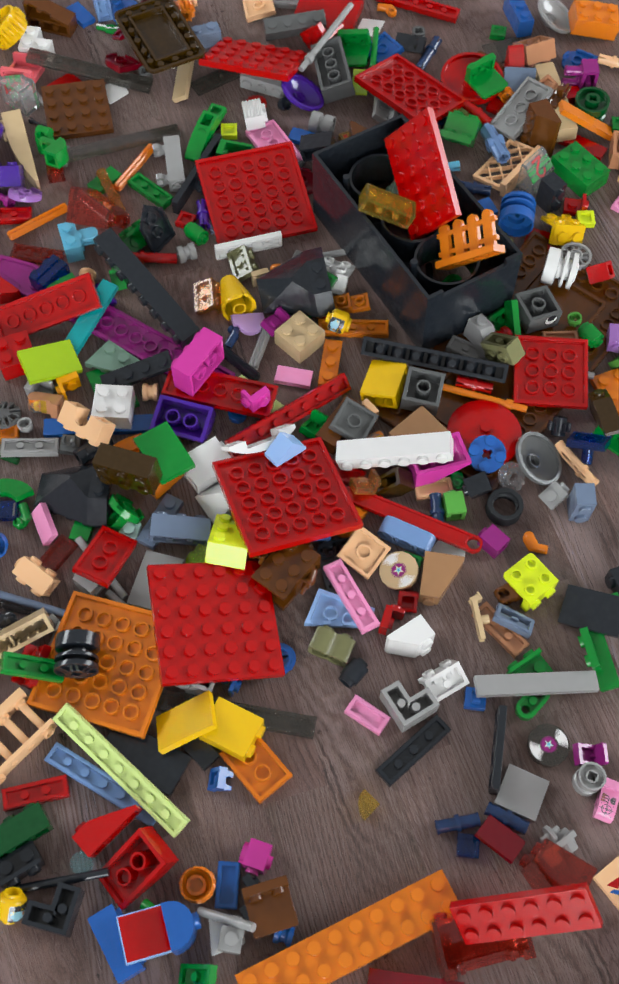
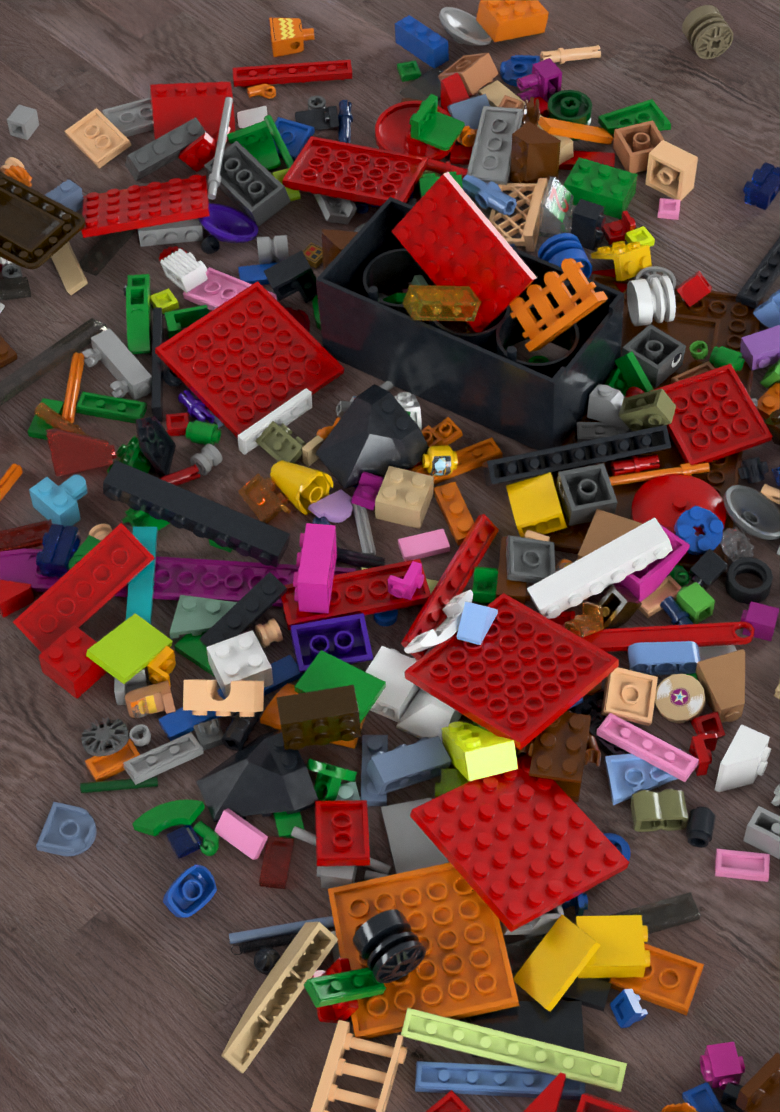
camera: 25 degrees left, 10 degrees down
(32, 573) = (276, 894): light nougat brick -> none

